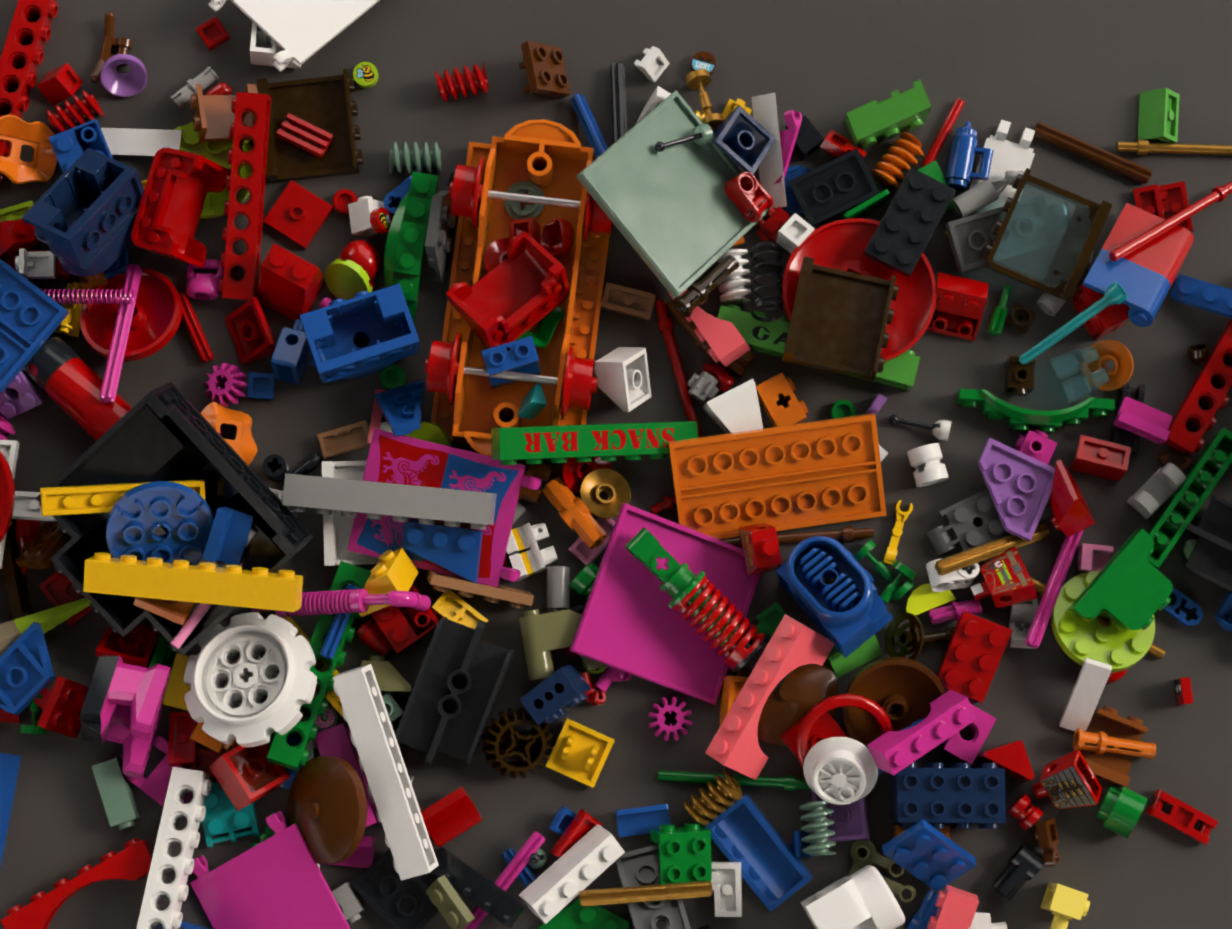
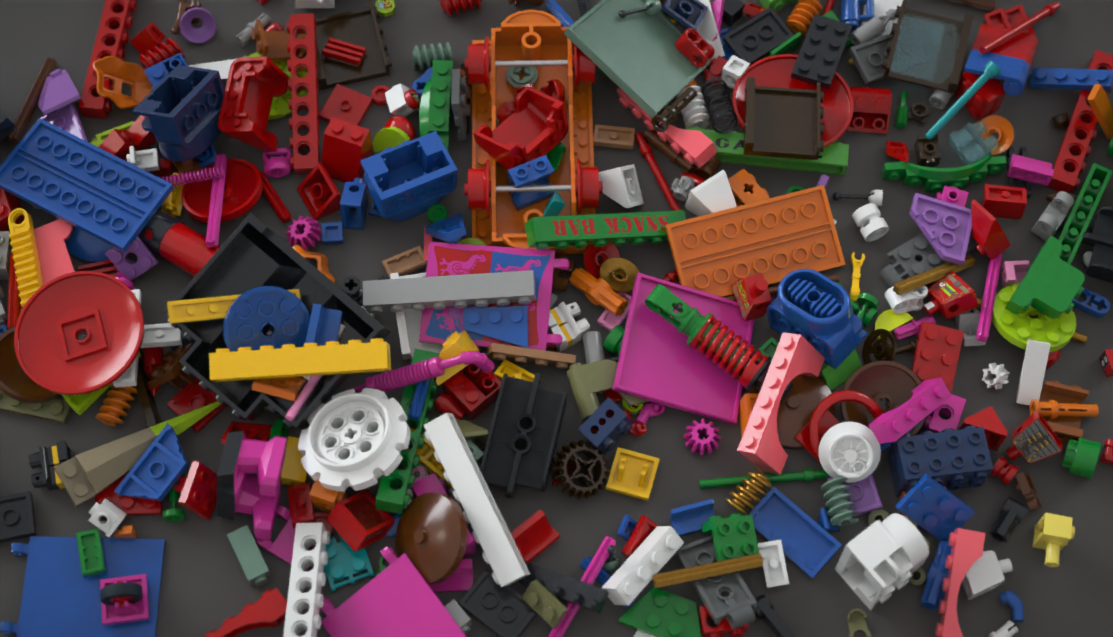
camera: 10 degrees left, 15 degrees down
(981, 370) = (897, 150): none -> red tile
(1040, 690) = (1001, 376): none -> white gear

